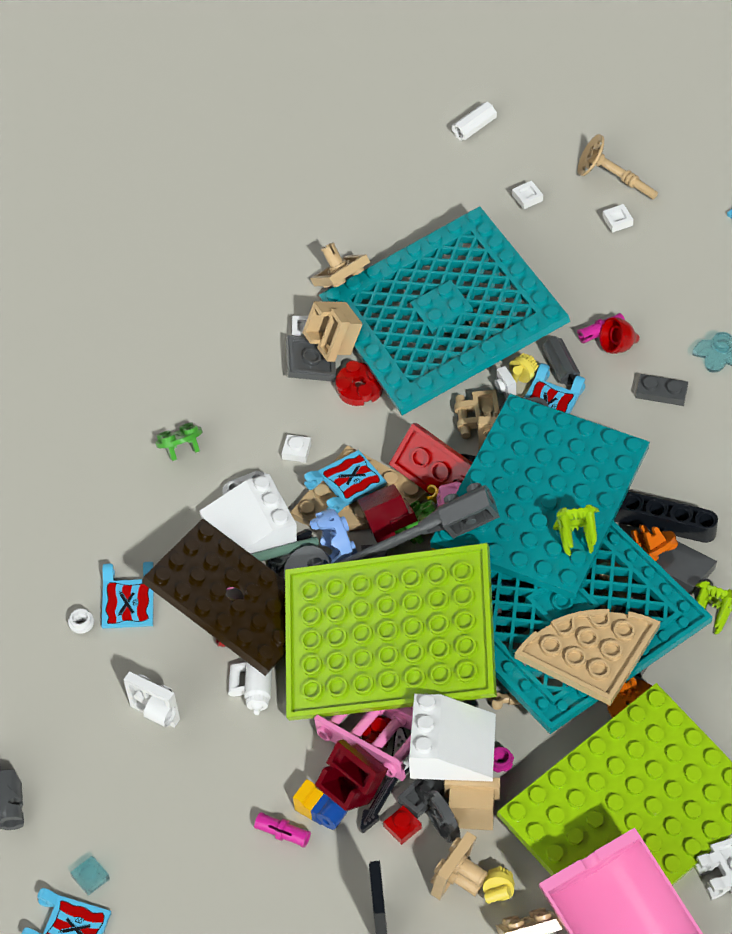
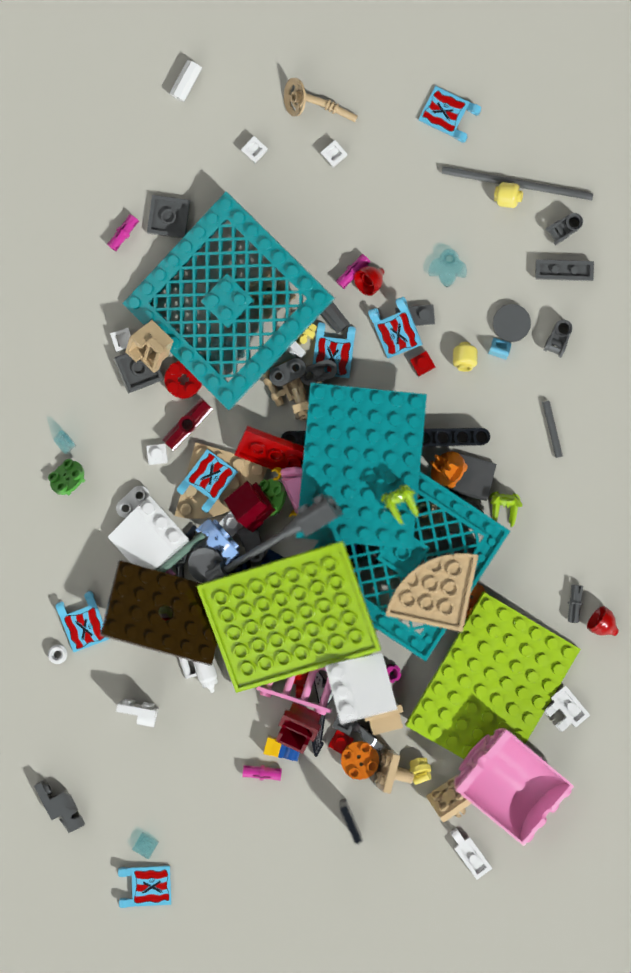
camera: 20 degrees left, 35 degrees up
(192, 407) = (64, 442): none -> clear light blue slope
(339, 267) = (131, 278): tan plate -> none
(345, 423) = (178, 433): none -> dark red piece
(349, 232) = (123, 232): none -> dark pink pin
(360, 536) = (230, 524): none -> white plate
(403, 229) = (168, 216): none -> dark grey tile
(406, 844) = (351, 763): none -> orange plate
(485, 397) = (287, 372): none -> dark grey plate
(636, 395) = (397, 331): none -> flag
(657, 436) = (422, 363): none -> red plate
(711, 439) = (465, 356): none -> light yellow head

